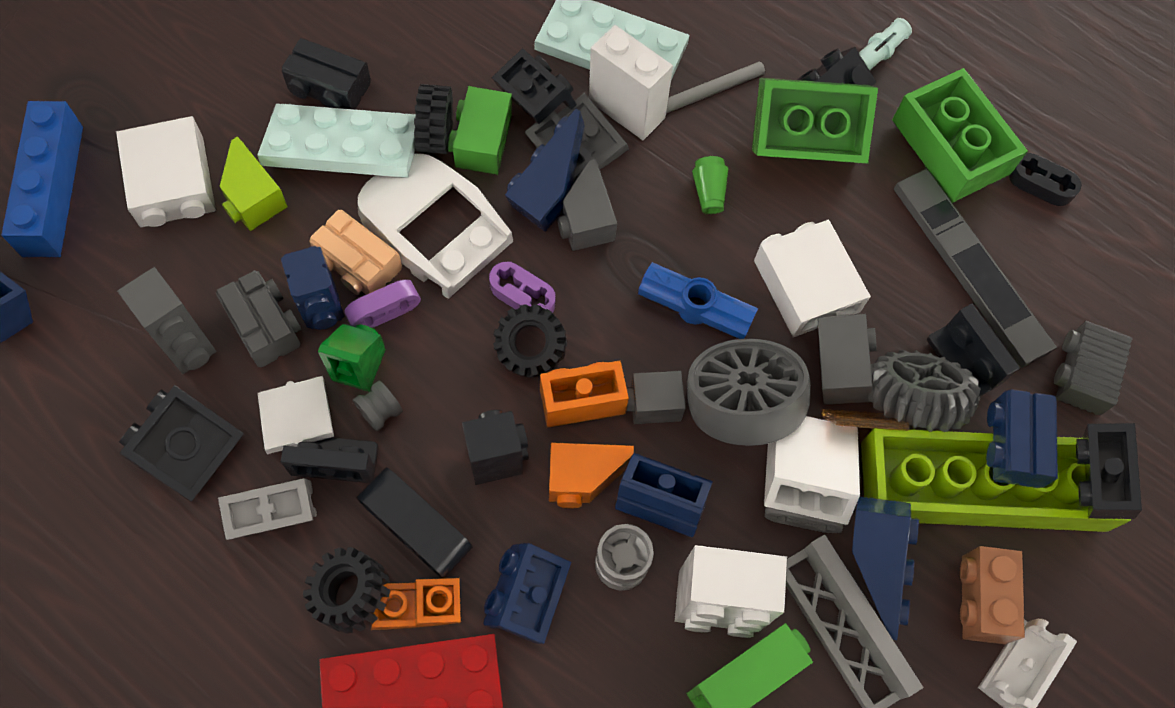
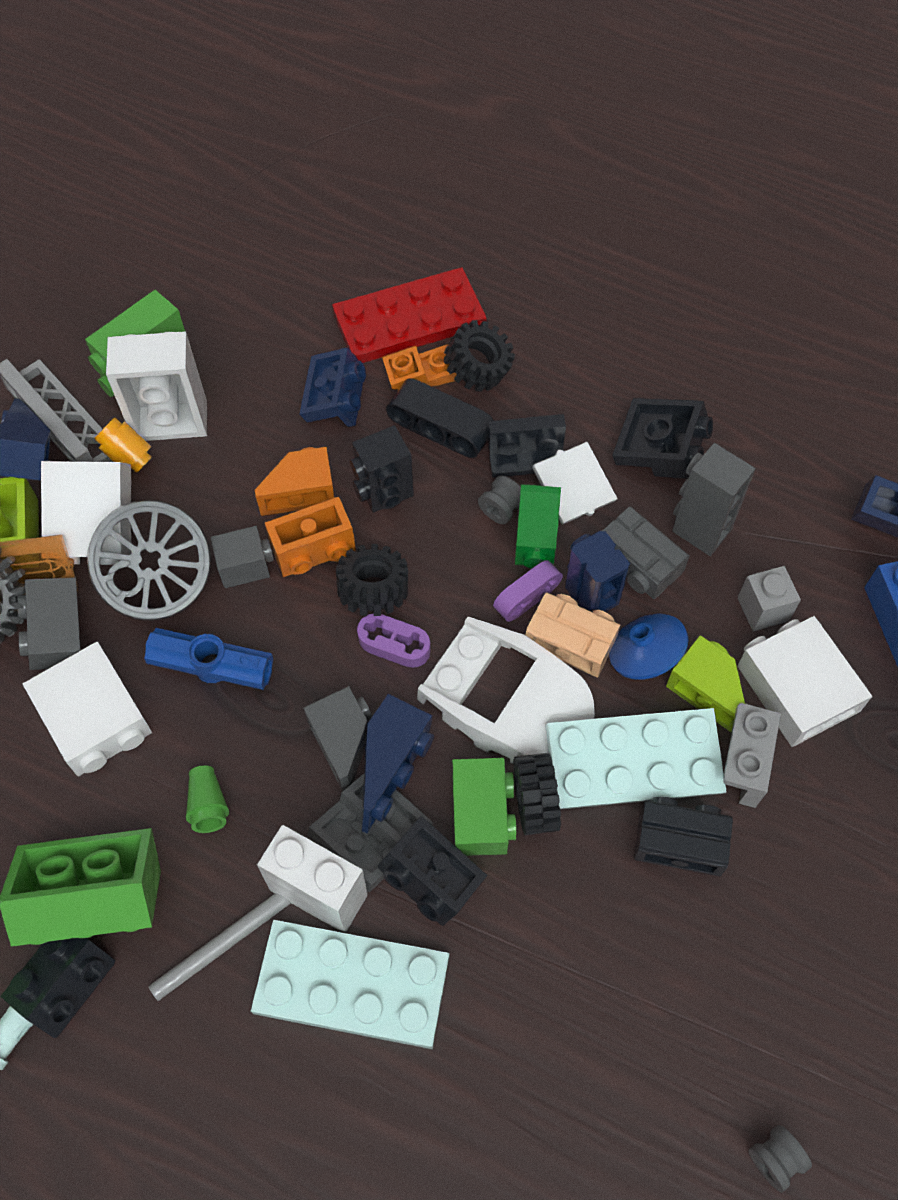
camera: 175 degrees right, 5 degrees down
(159, 244) = (768, 598): none -> light grey brick
(239, 113) = (751, 752): none -> light grey bracket
(267, 508) = (576, 395): light grey hinge -> none
(270, 220) = (649, 646): none -> blue dish
(623, 557) = (253, 417): light grey wheel -> none
(663, 495) = (222, 466): dark blue brick -> none
(768, 540) = (123, 444): none -> light orange brick

